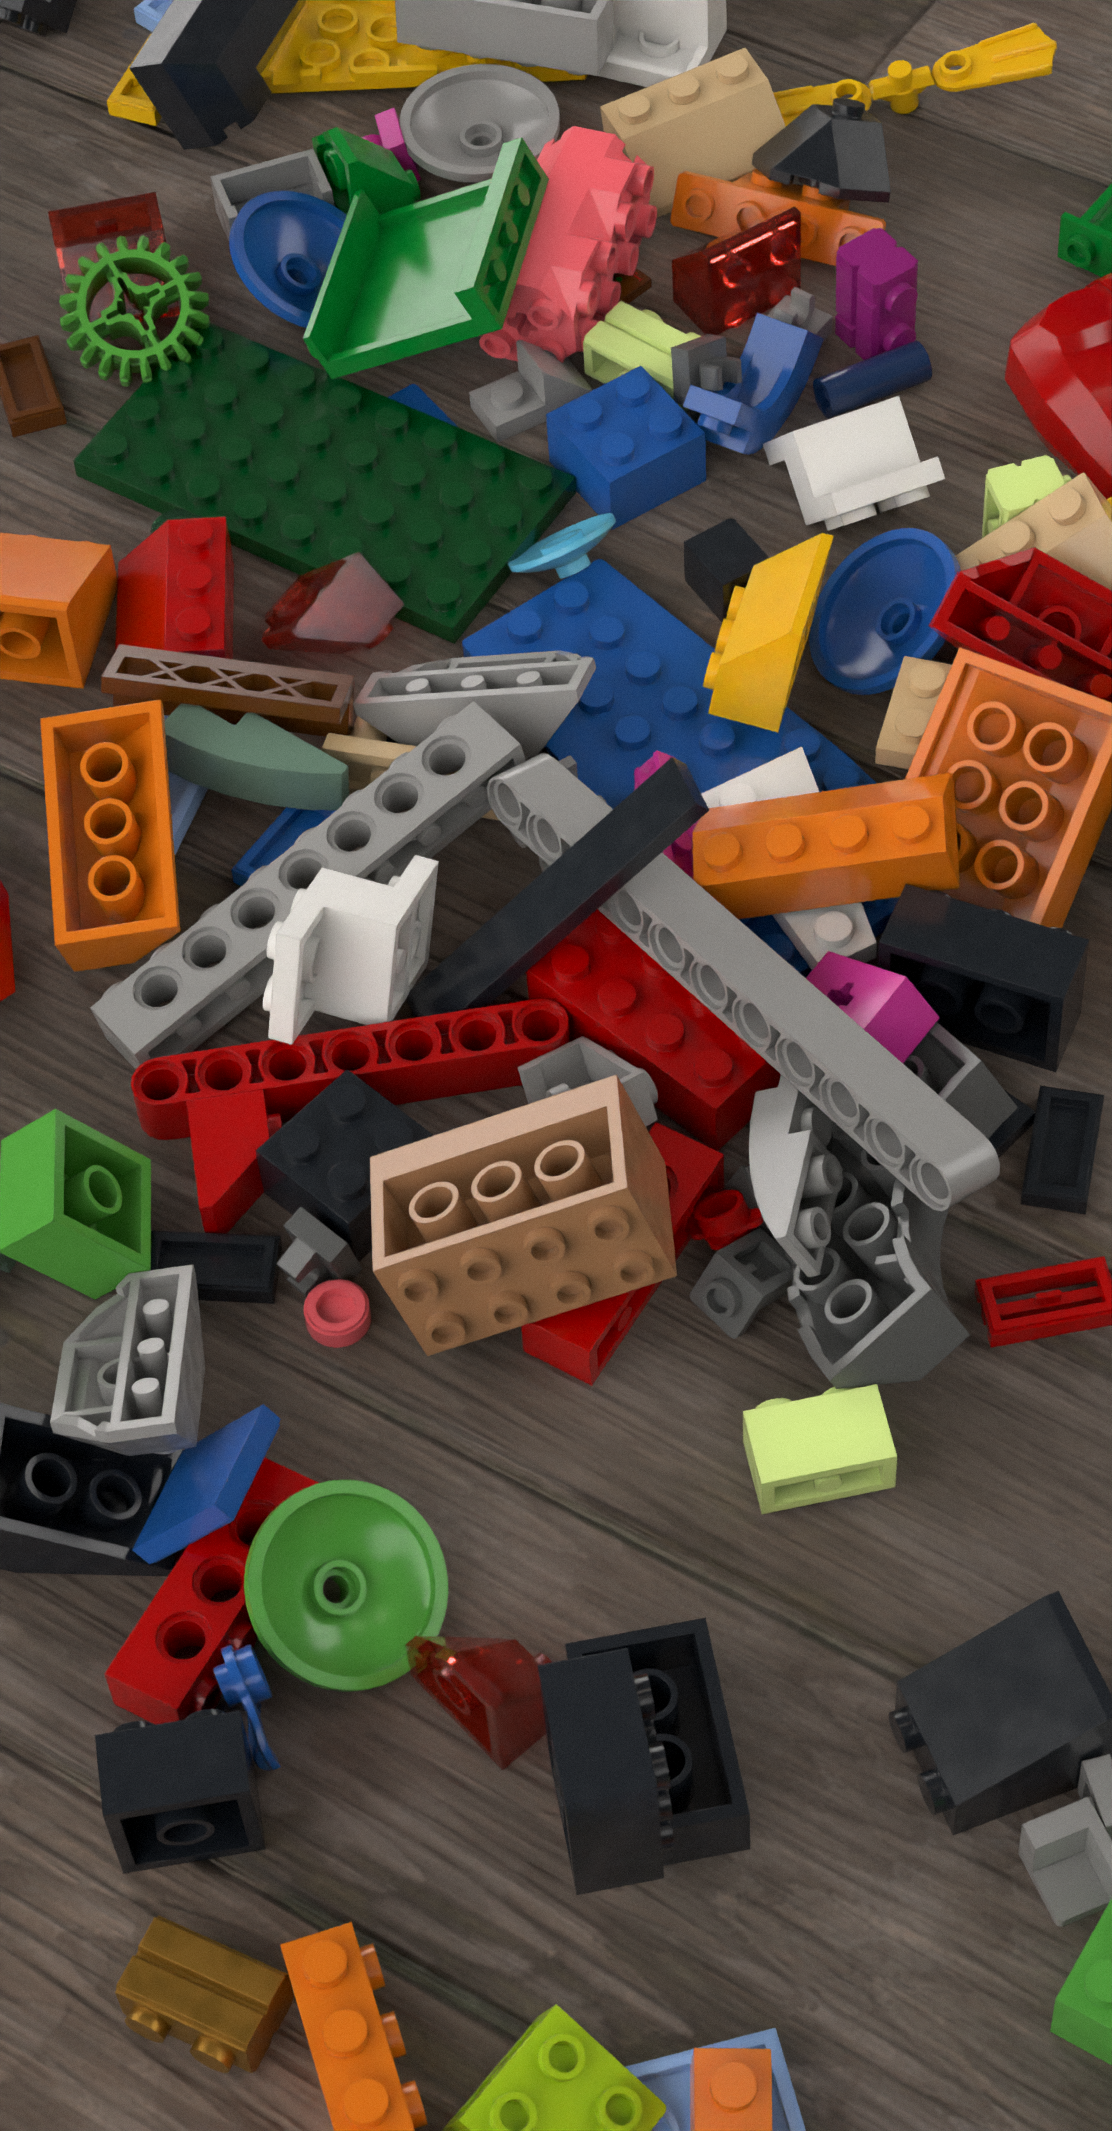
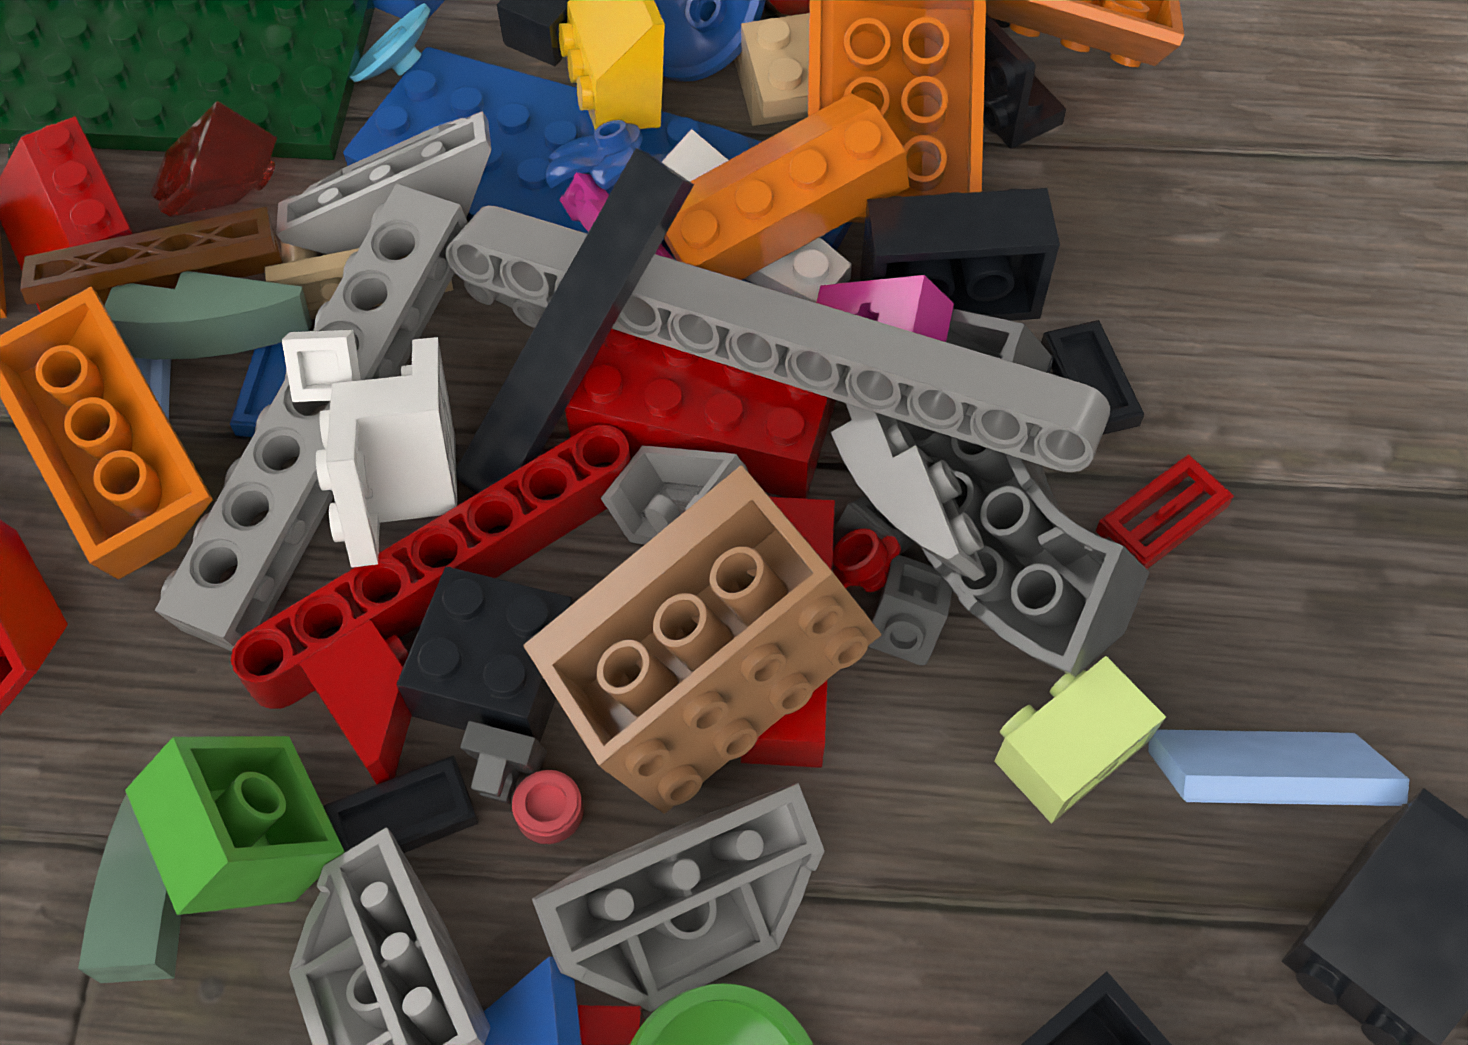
camera: 30 degrees left, 5 degrees up
(321, 842) = (317, 361): none -> white plate
(402, 1423) = (685, 901): none -> light grey wedge
(694, 739) = (601, 154): none -> blue plate
(971, 1541) = (1277, 768): none -> light blue tile

